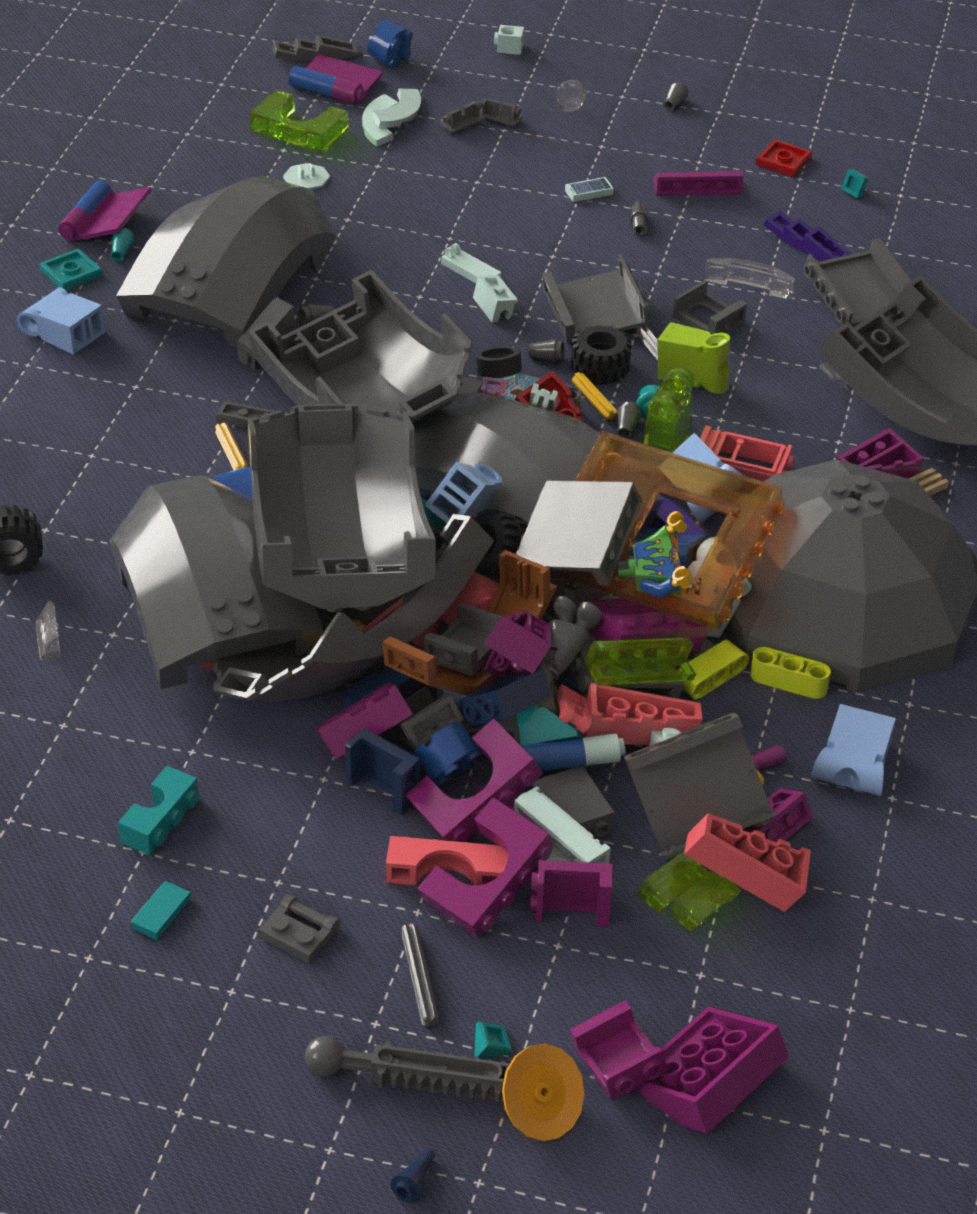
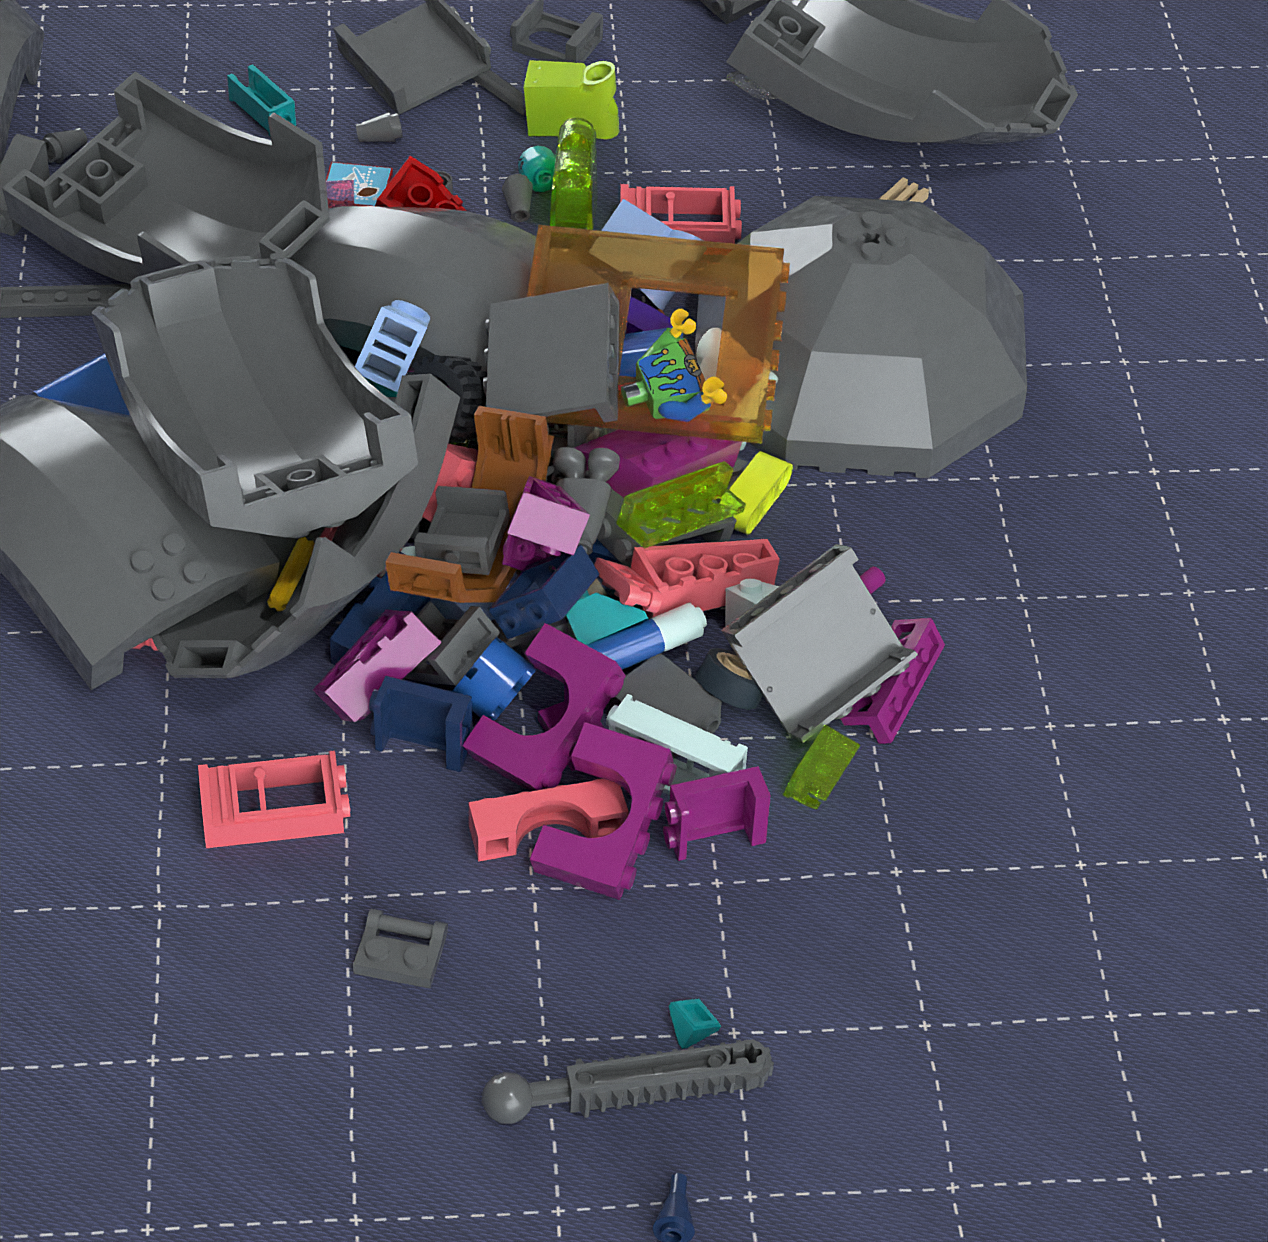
camera: 20 degrees left, 5 degrees up
(148, 827) = (157, 873): teal arch -> none
(160, 910) = (218, 973): teal tile -> none
(212, 808) = (228, 827): none -> coral door
(230, 446) = (33, 348): yellow axle -> none
(420, 975) = (573, 965): dark grey axle -> none
(466, 264) = (233, 38): light aqua hinge -> none
(479, 325) = (261, 98): none -> teal window
(494, 297) = (286, 70): light aqua hinge -> none
(498, 362) = (339, 155): black tyre -> none
(543, 398) = (421, 196): light aqua hinge -> none
(543, 1092) = (788, 1065): light orange piece -> none
(594, 396) = (463, 176): yellow axle -> none
(601, 353) = (451, 119): black tyre -> none
(617, 1051) = (849, 992): magenta panel -> none
(624, 799) = (728, 679): none -> black wheel
(703, 900) = (867, 779): clear neon green hinge -> none
(714, 1067) = (958, 979): magenta slope -> none
(750, 860) = (909, 718): coral wedge -> none
(790, 672) = (847, 473): neon yellow beam -> none
(856, 750) = (966, 550): light blue piece -> none
(887, 454) = (847, 173): magenta wedge -> none

